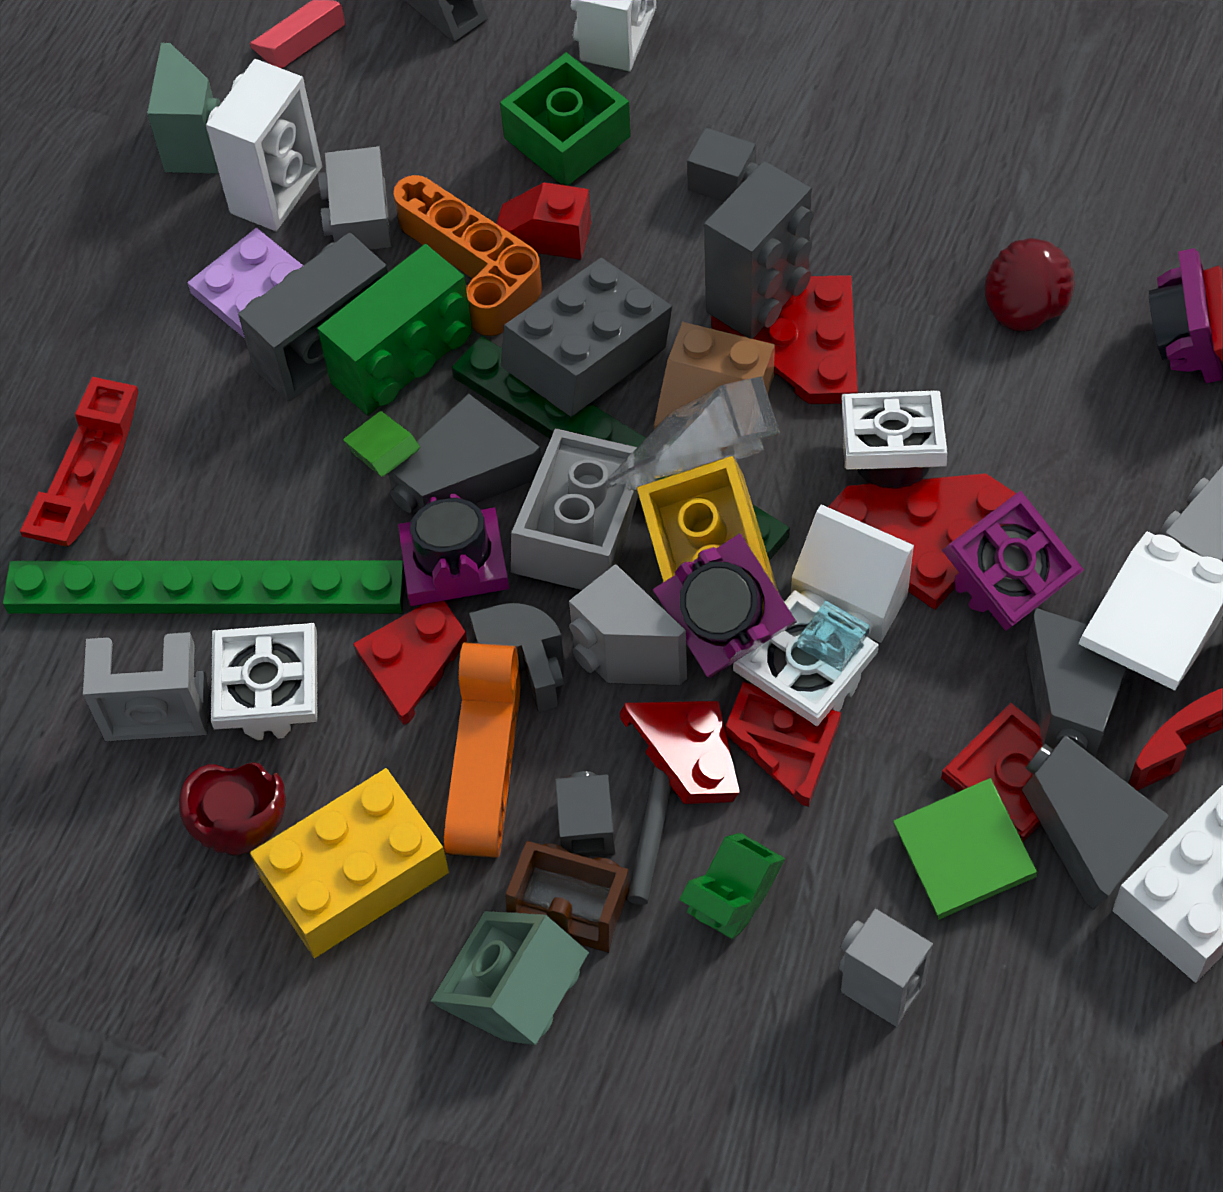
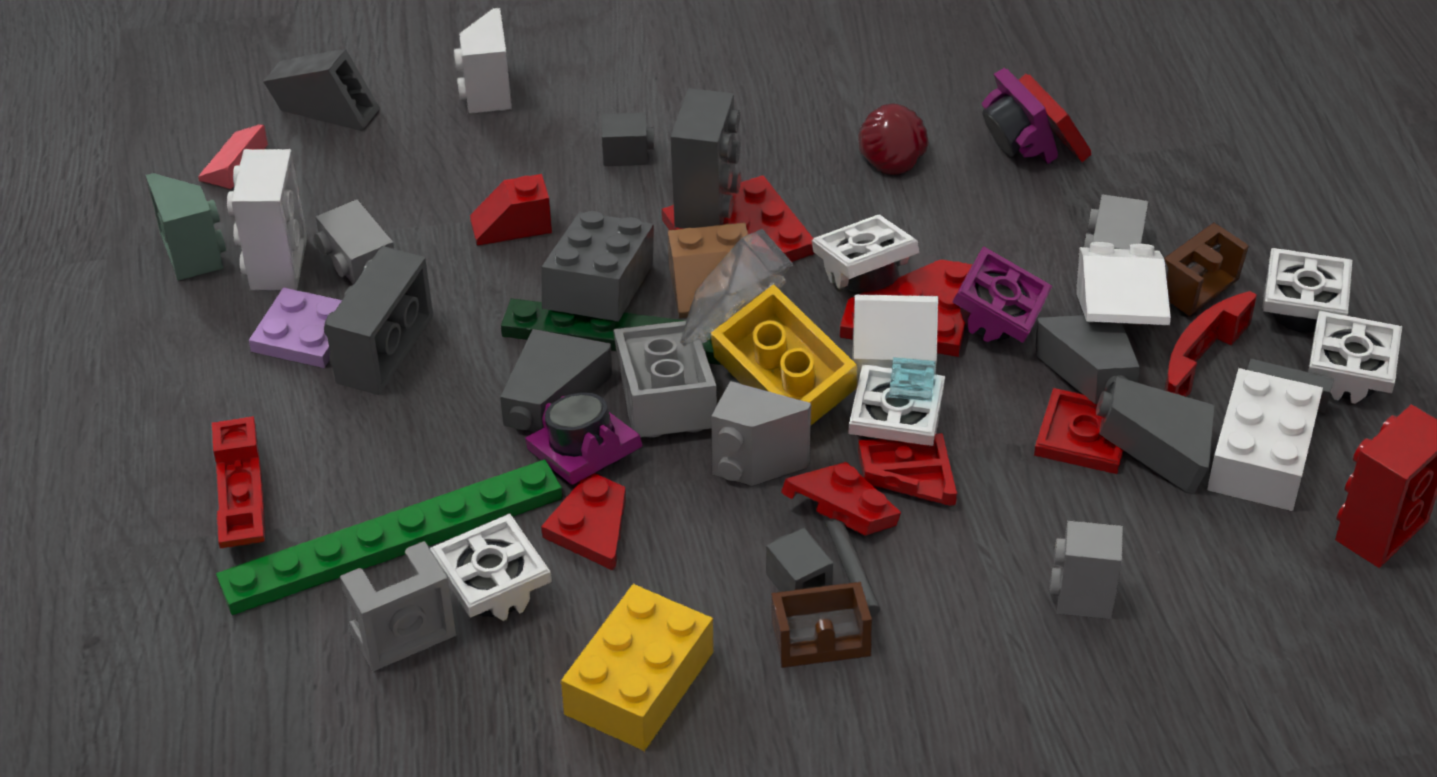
camera: 30 degrees left, 15 degrees down
(232, 806) = (523, 663): dark red piece -> none
(381, 443) = (483, 385): bright green tile -> none
(396, 329) = (448, 308): green brick -> none
(483, 749) = (690, 549): orange beam -> none
(501, 265) = (468, 243): orange beam -> none
(512, 975) = (813, 691): sand green slope -> none
(536, 642) = (676, 475): dark grey brick -> none
(565, 119) = (490, 141): green brick -> none
(724, 604) = (828, 378): piece -> none
(733, 885) = (940, 567): green brick -> none
(965, 848) = (1085, 482): bright green tile -> none

